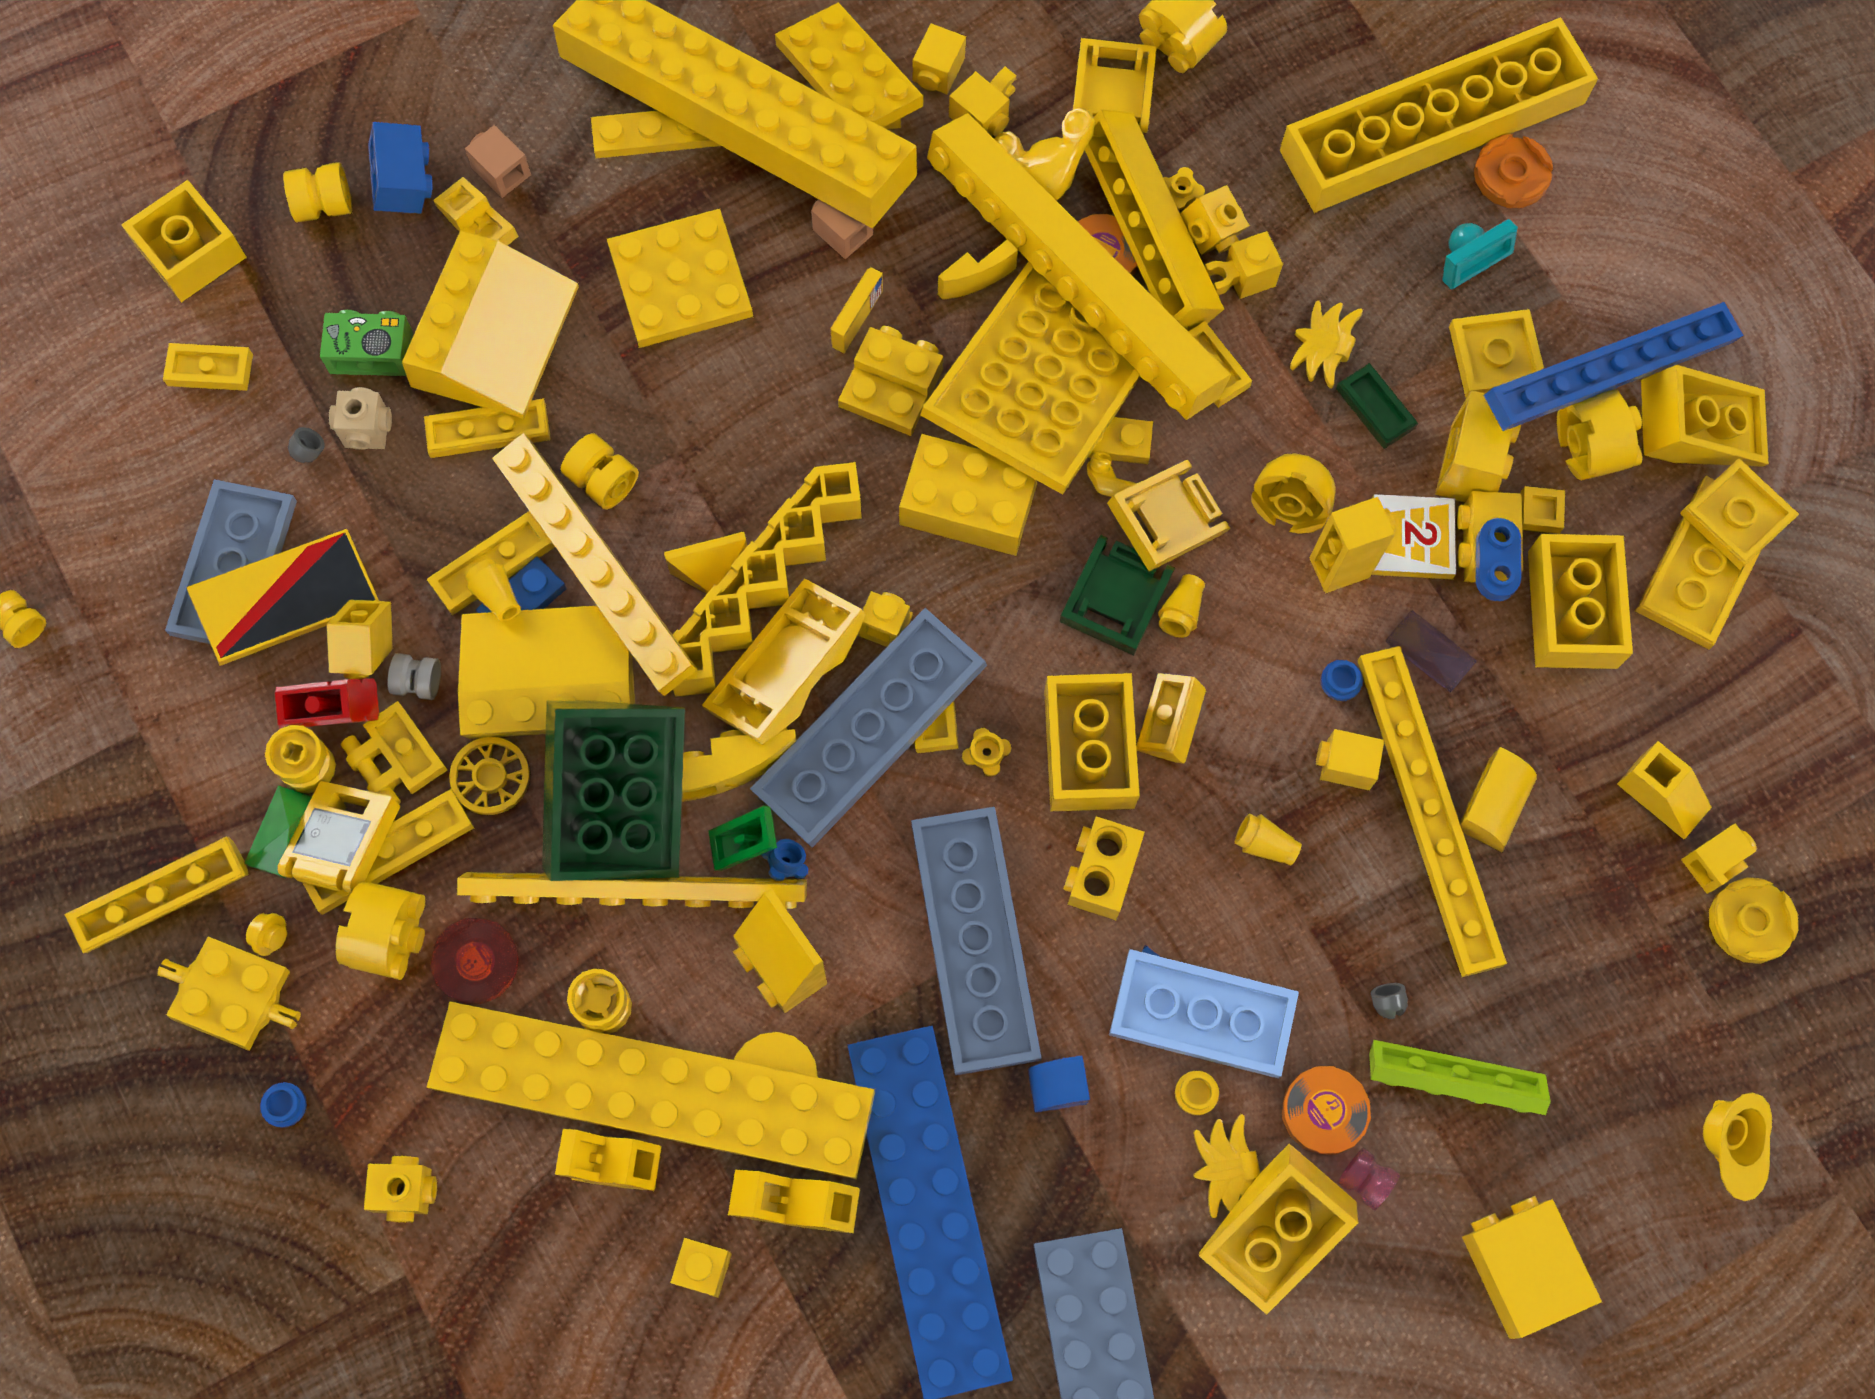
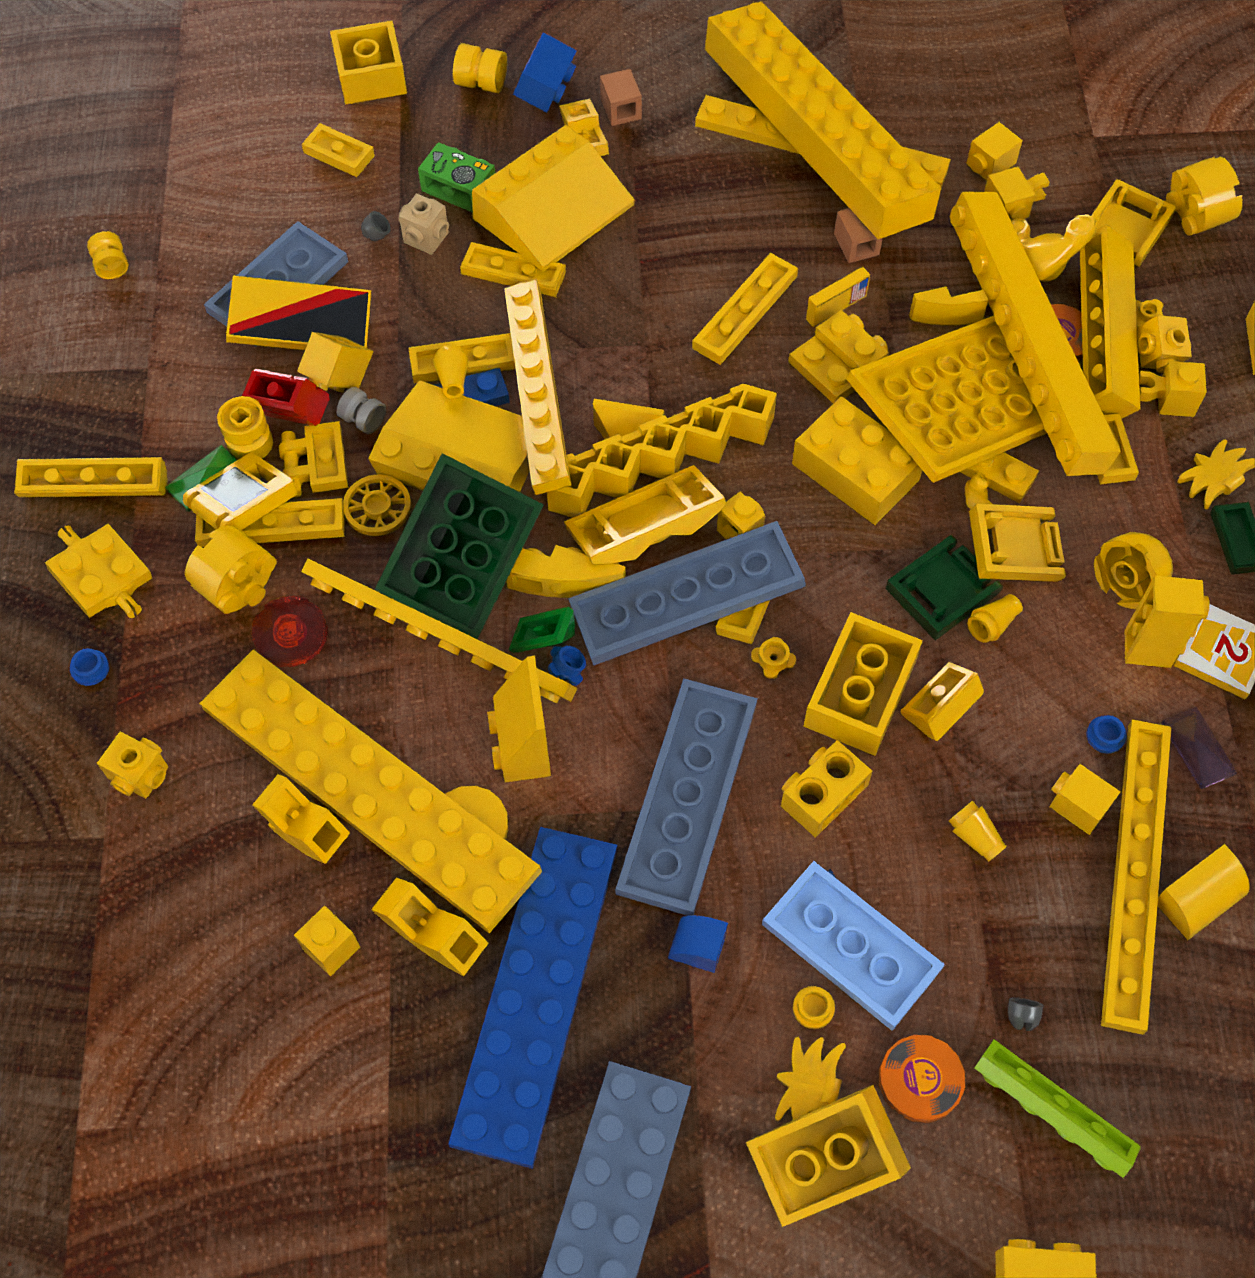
camera: 30 degrees right, 10 degrees down
(266, 933) = (150, 540): yellow plate -> none
(593, 466) = (578, 327): yellow wheel -> none
(599, 1001) = (363, 698): yellow wheel -> none
(680, 278) = (713, 226): yellow plate -> none
(765, 366) = (745, 308): none -> yellow plate
(848, 66) = (921, 128): yellow plate -> none
(1378, 1183) = (935, 1163): clear pink wheel -> none

